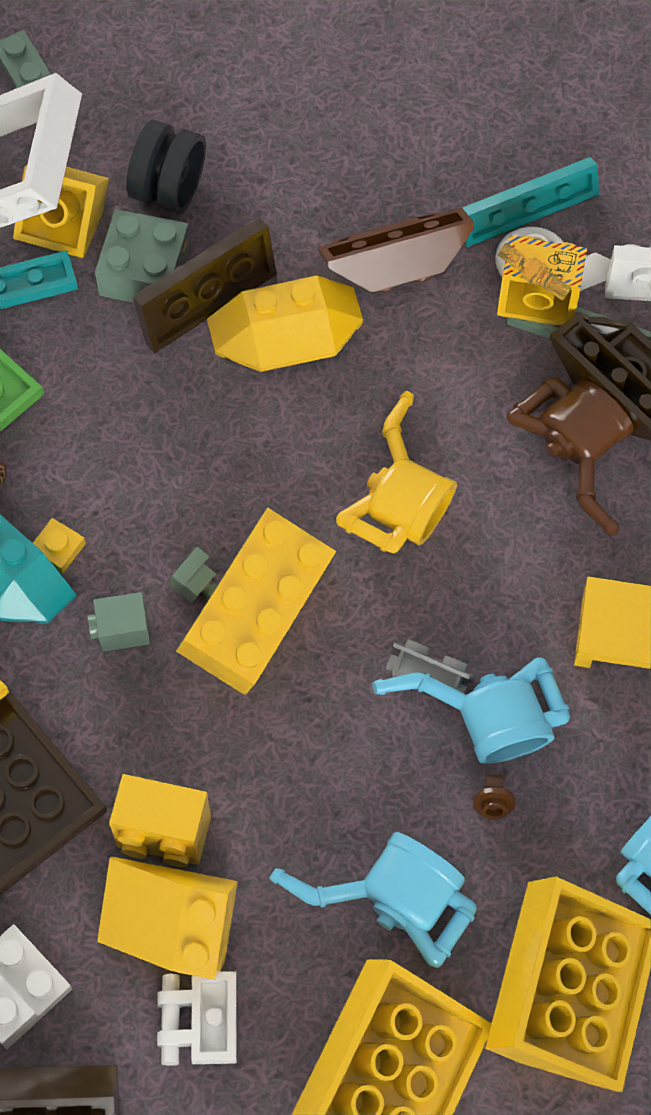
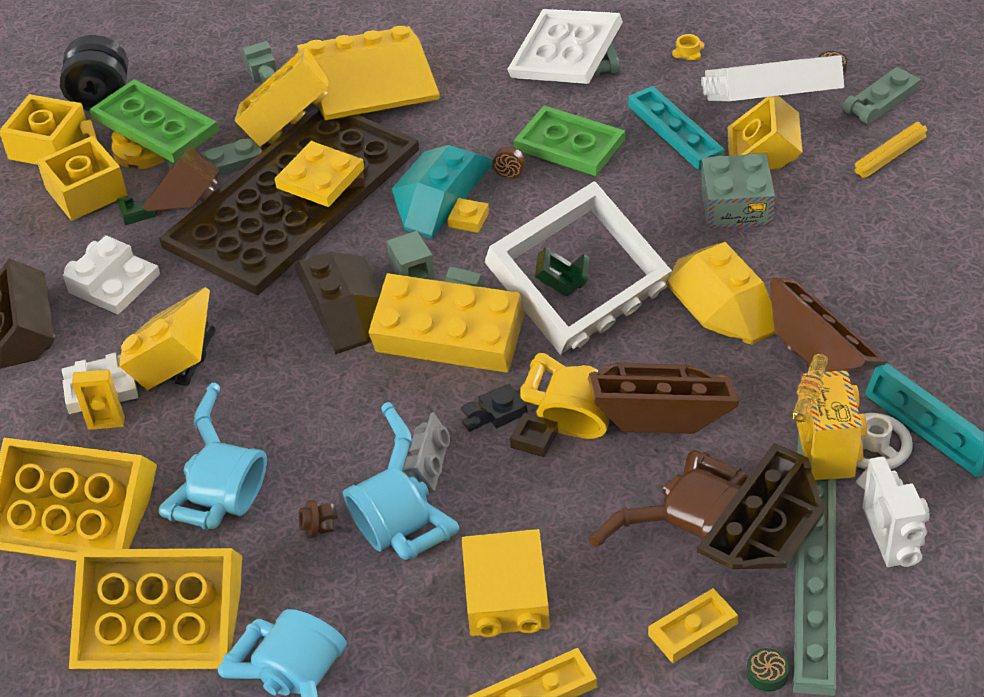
camera: 80 degrees right, 20 degrees down
(121, 94) = (890, 150): none -> yellow axle
(146, 712) = (342, 295): none -> dark brown wedge
(160, 820) = (242, 310): yellow brick -> none
(166, 166) = (824, 173): black wheel -> none
(181, 467) = (594, 199): none -> white window
(205, 284) = (715, 216): dark brown plate -> none
(206, 465) = (560, 273): none -> dark green bracket
(255, 1010) = (98, 399): none -> yellow plate
(382, 584) = (496, 406): none -> black plate
(436, 413) = (661, 396): none -> reddish brown wedge
(437, 556) = (534, 434): none -> dark brown plate

